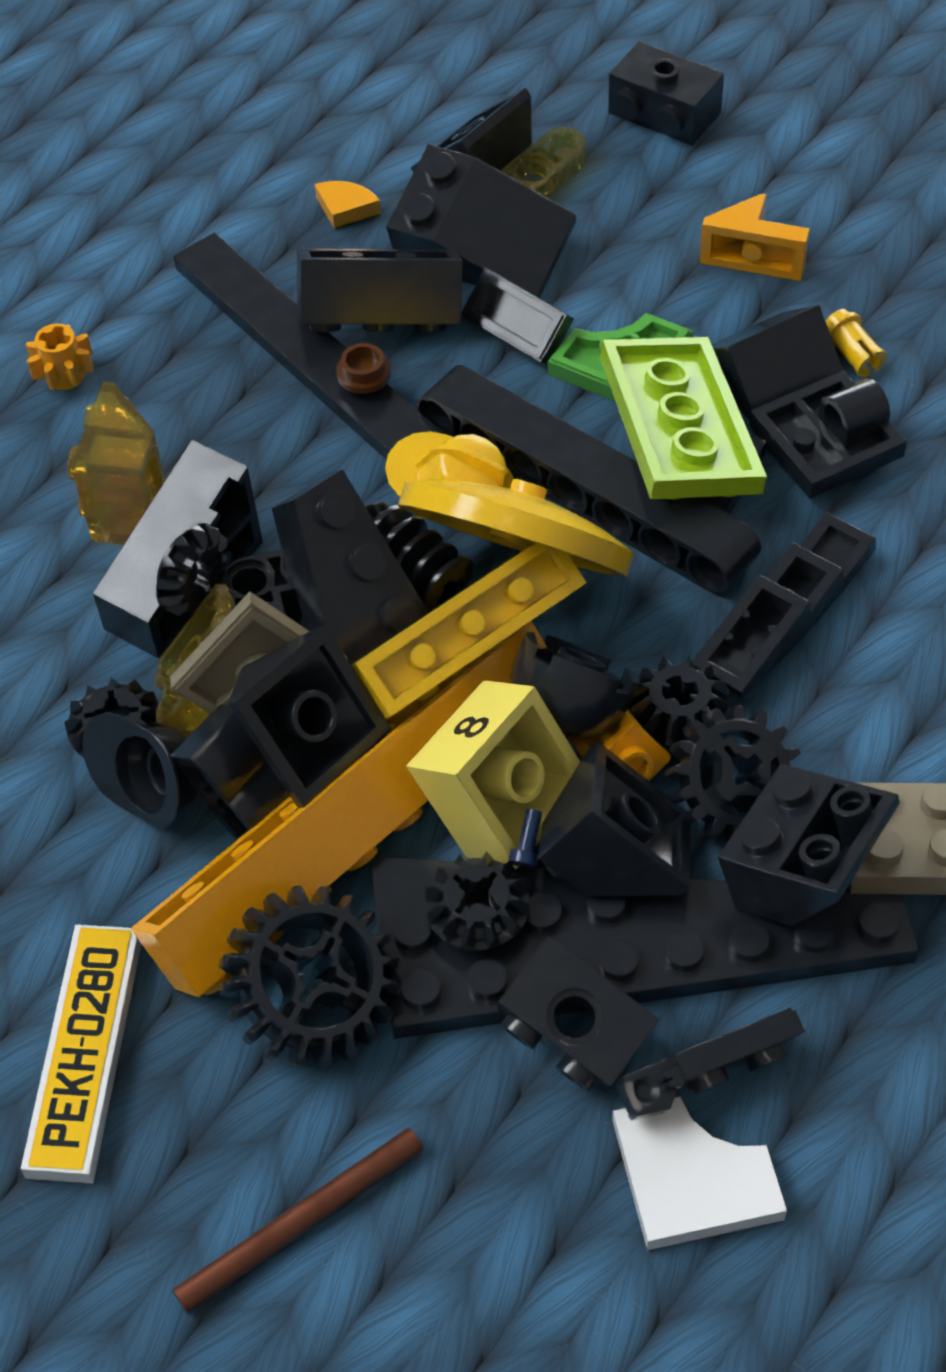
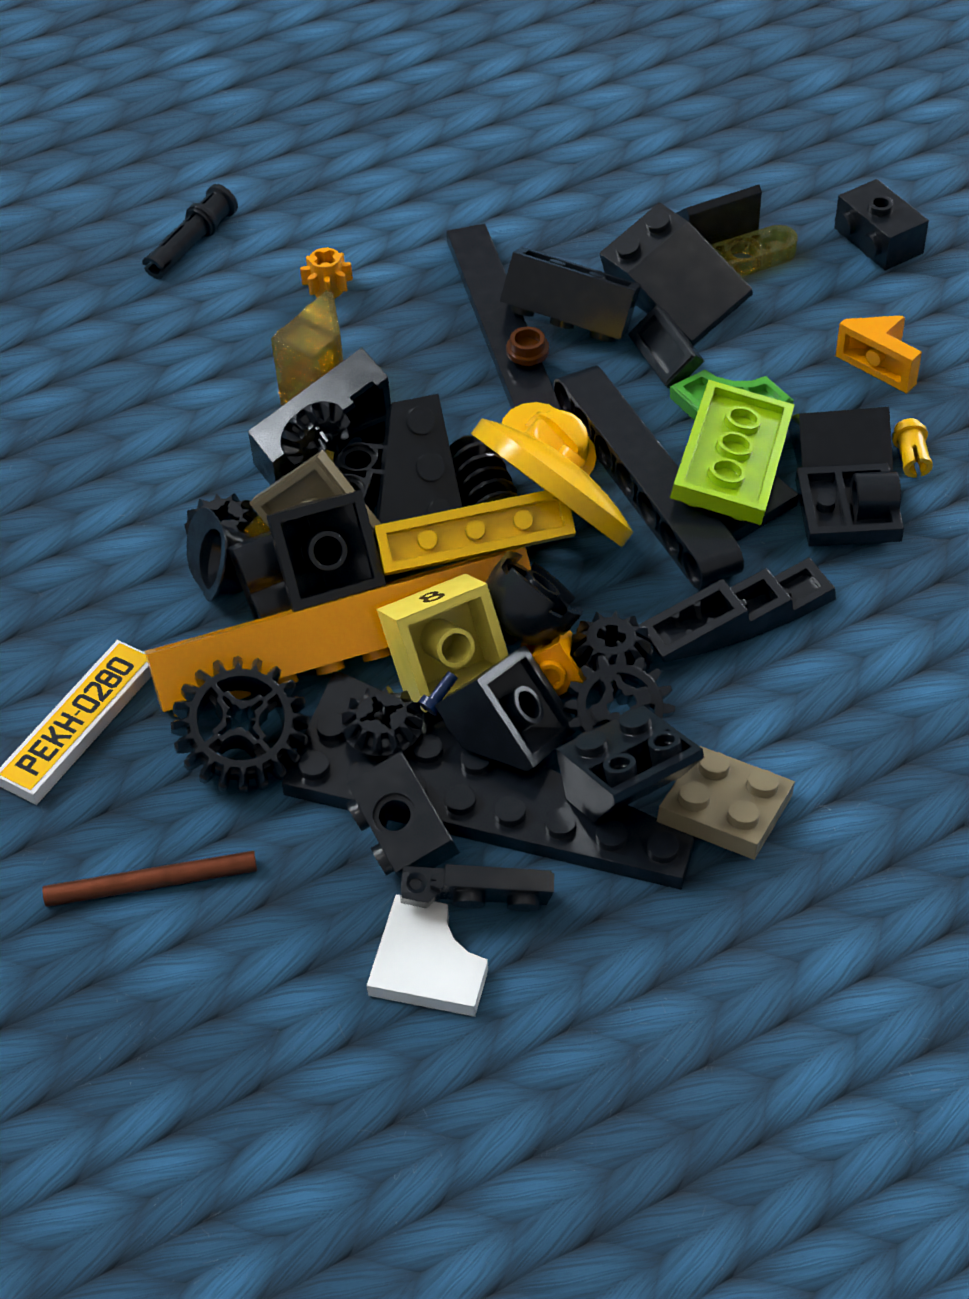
camera: 25 degrees right, 5 degrees down
(346, 202) = (593, 232): light orange tile -> none

